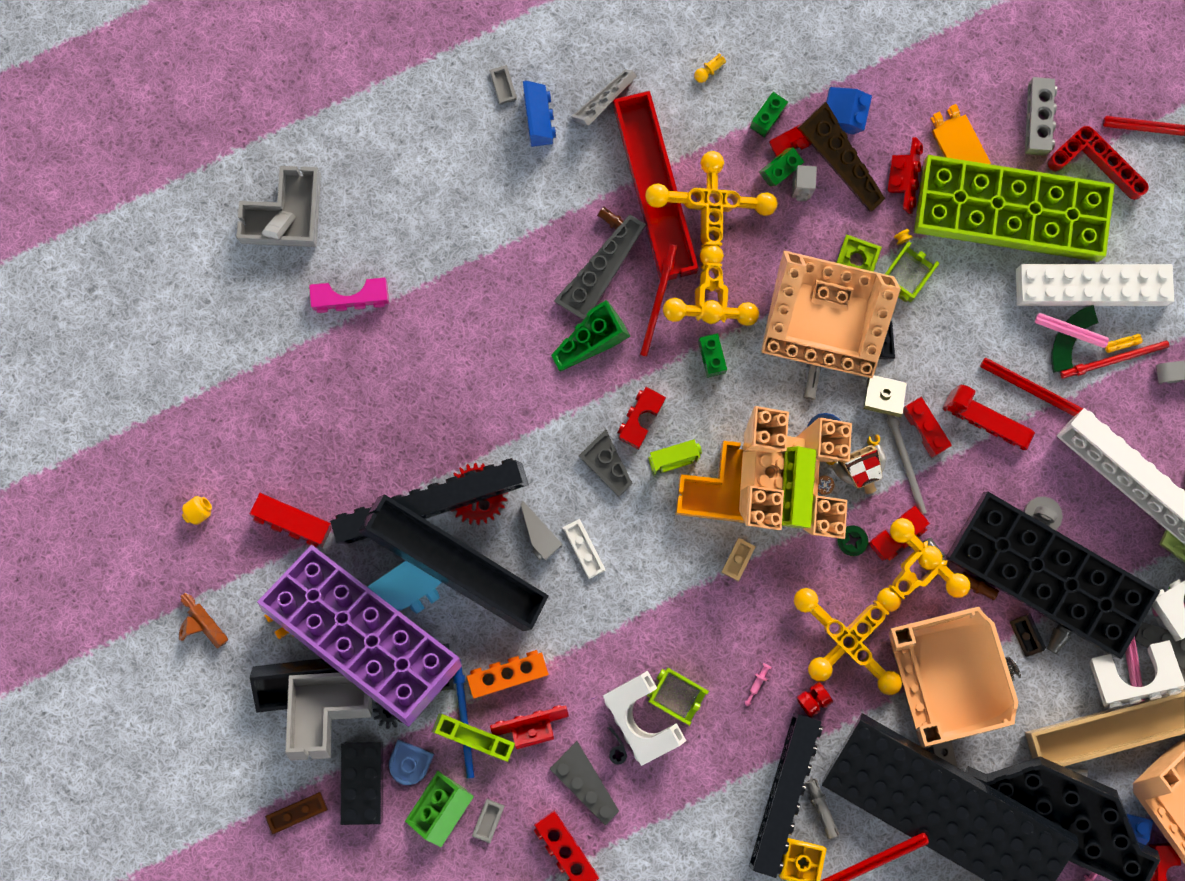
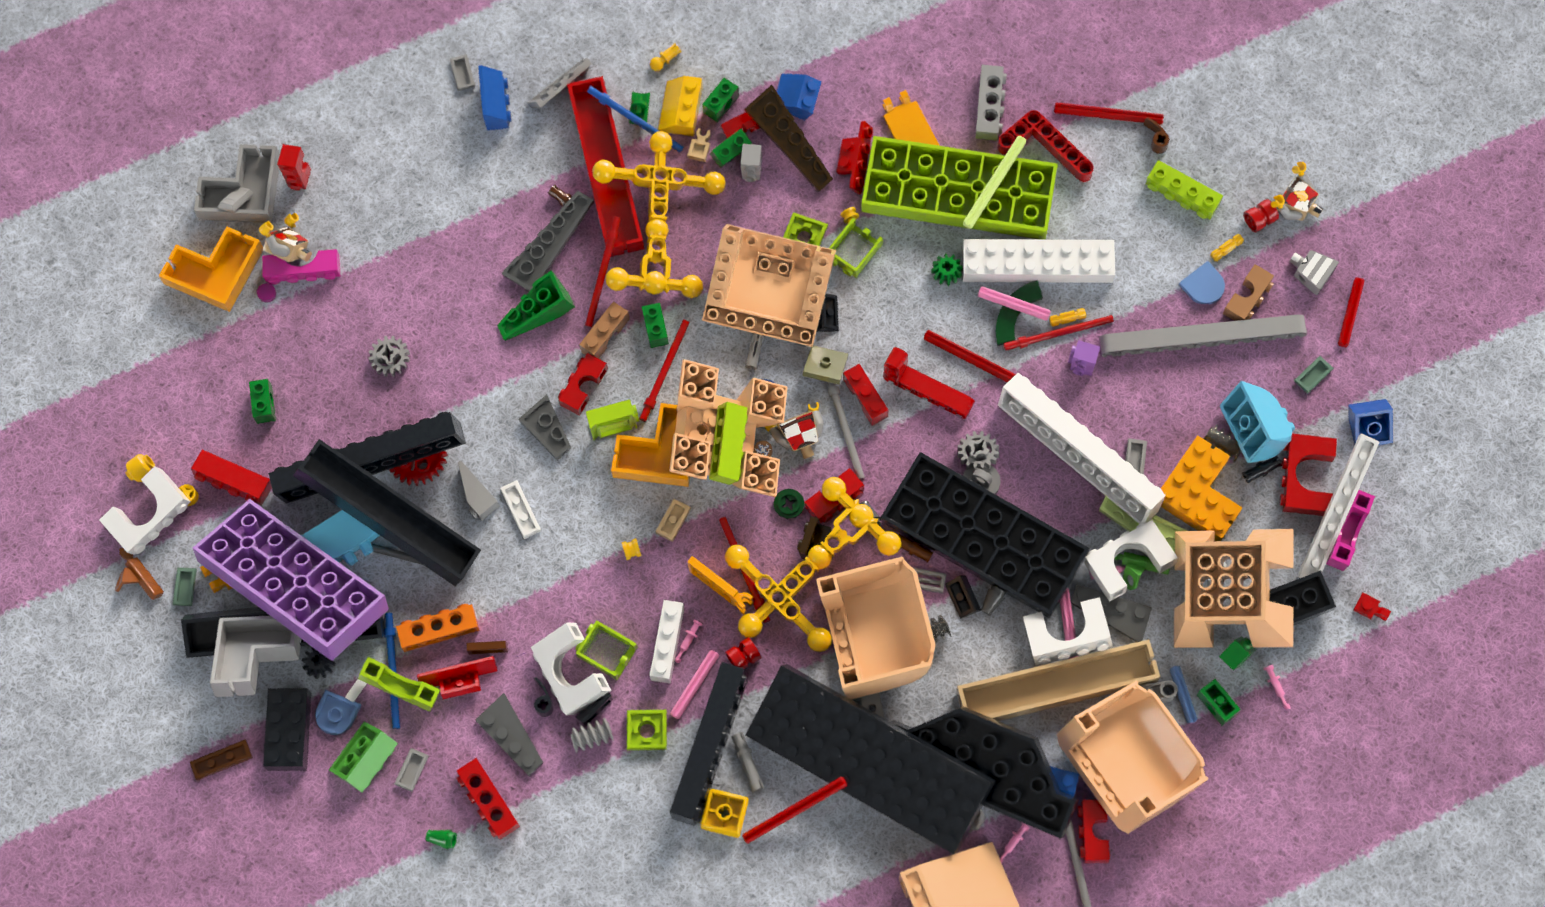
camera: 10 degrees right, 10 degrees down
(229, 547) = (170, 503): none -> white arch
(244, 535) = (190, 490): none -> yellow wheel
(249, 633) = (184, 586): none -> sand green tile
(262, 308) = (215, 278): none -> light orange piece
(314, 322) = (266, 292): none -> magenta tile
(317, 438) = (262, 401): none -> green brick
(333, 270) = (285, 242): none -> torso
(337, 190) = (293, 168): none -> red arch
(427, 739) = (355, 690): none -> white sticker
(453, 387) = (382, 356): none -> light grey gear
(453, 594) = (393, 553): none -> dark grey bar
(564, 694) = (487, 647): none -> reddish brown tile
(654, 116) = (605, 99): none -> blue bar
(661, 362) = (610, 322): none -> medium nougat arch
(664, 760) = (593, 710): none -> black slope
(667, 784) = (591, 735): none -> light grey piece
(686, 124) = (640, 105): none -> green hips
(698, 590) = (631, 549): none -> yellow wheel
(709, 435) = (650, 401): none -> red bar
(727, 120) = (681, 105): none -> yellow slope
(731, 787) = (636, 720): none -> lime piece
(738, 687) = (667, 641): none -> white brick
(748, 165) = (700, 147): none -> tan plate
(766, 729) = (694, 684): none -> bright pink axle
(789, 630) = (719, 585): none -> light orange tile
(827, 645) = (758, 601): none -> red bar
(883, 577) = (813, 536): none -> dark brown bracket
(1000, 300) = (940, 272): none -> green gear
(1006, 621) = (934, 574): none -> light grey tile
(1046, 489) = (975, 444): none -> light grey gear
(1053, 204) = (994, 182): none -> yellowish green axle
(1145, 389) = (1083, 358): none -> medium lavender brick

